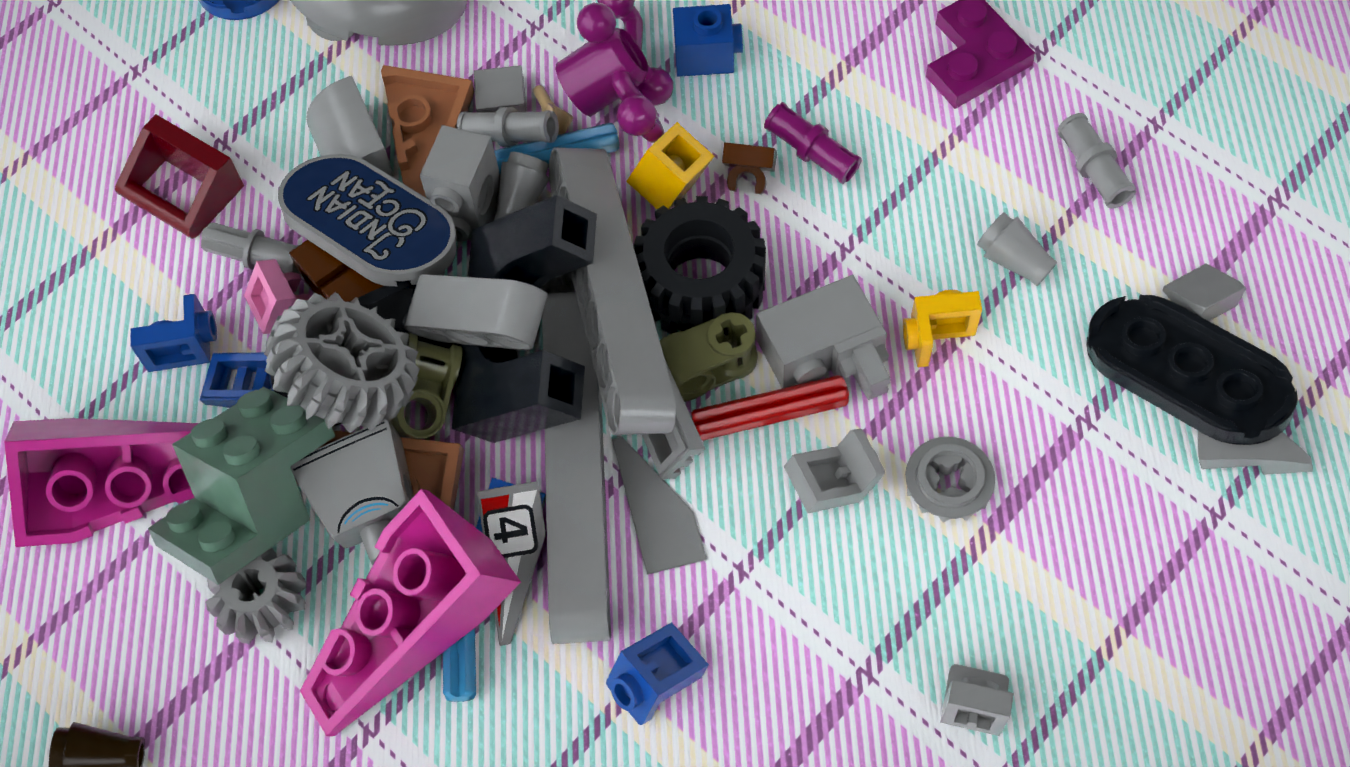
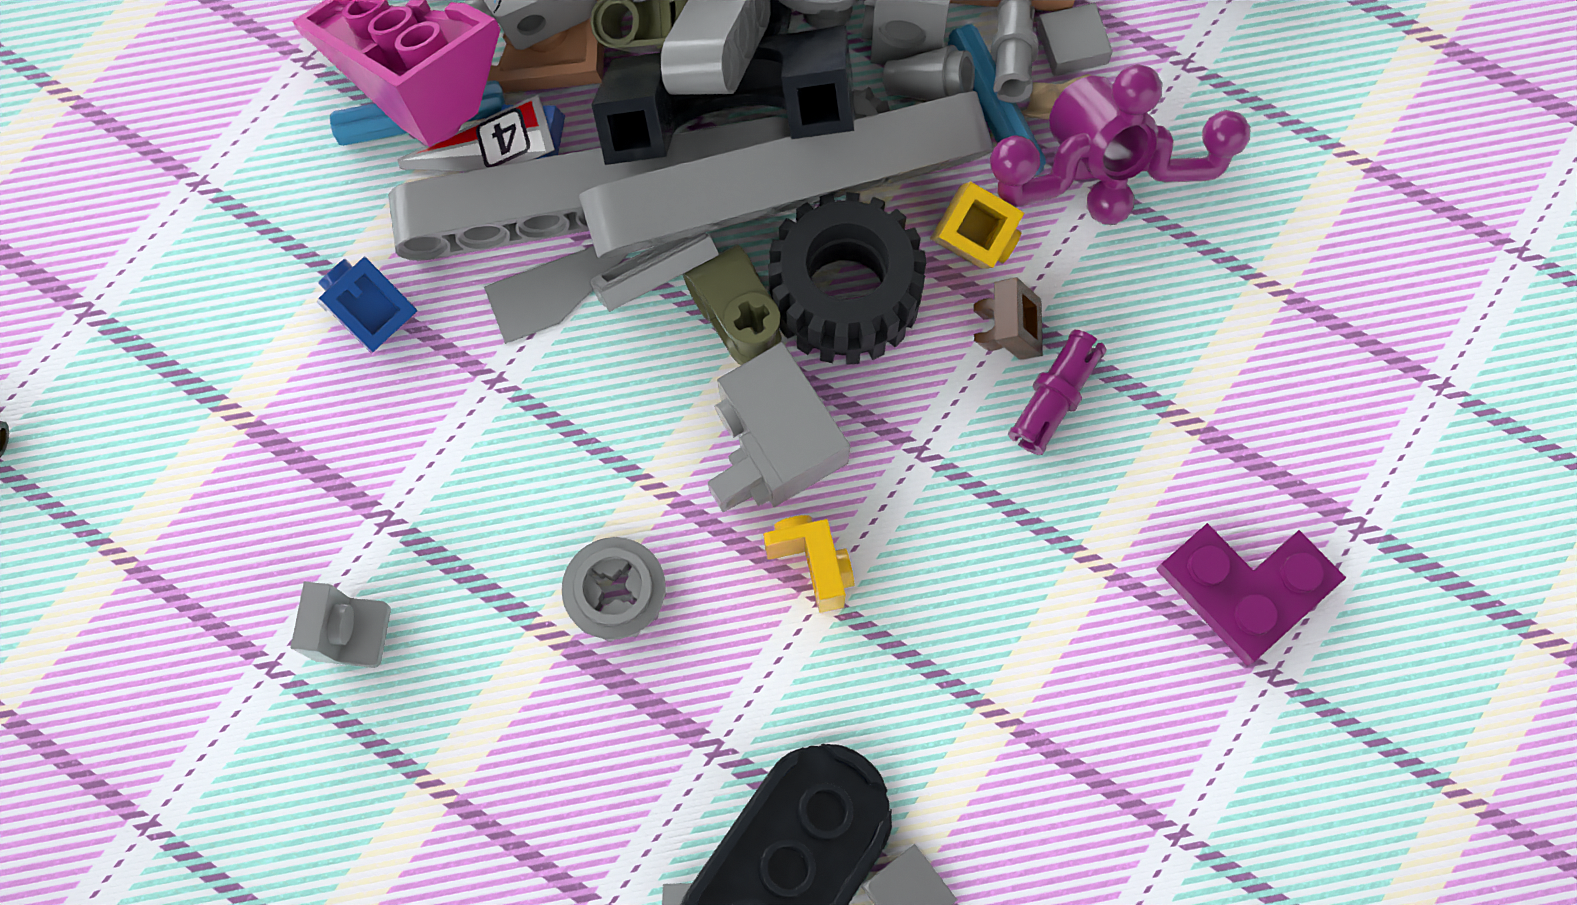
camera: 80 degrees right, 10 degrees up
(705, 40) = (1188, 246): blue brick -> none
(770, 407) = (686, 384): red axle -> none
(835, 474) = (600, 455): light grey bracket -> none
(1016, 249) = (935, 649): light grey cone -> none
(1096, 160) = (1091, 748): light grey pin -> none

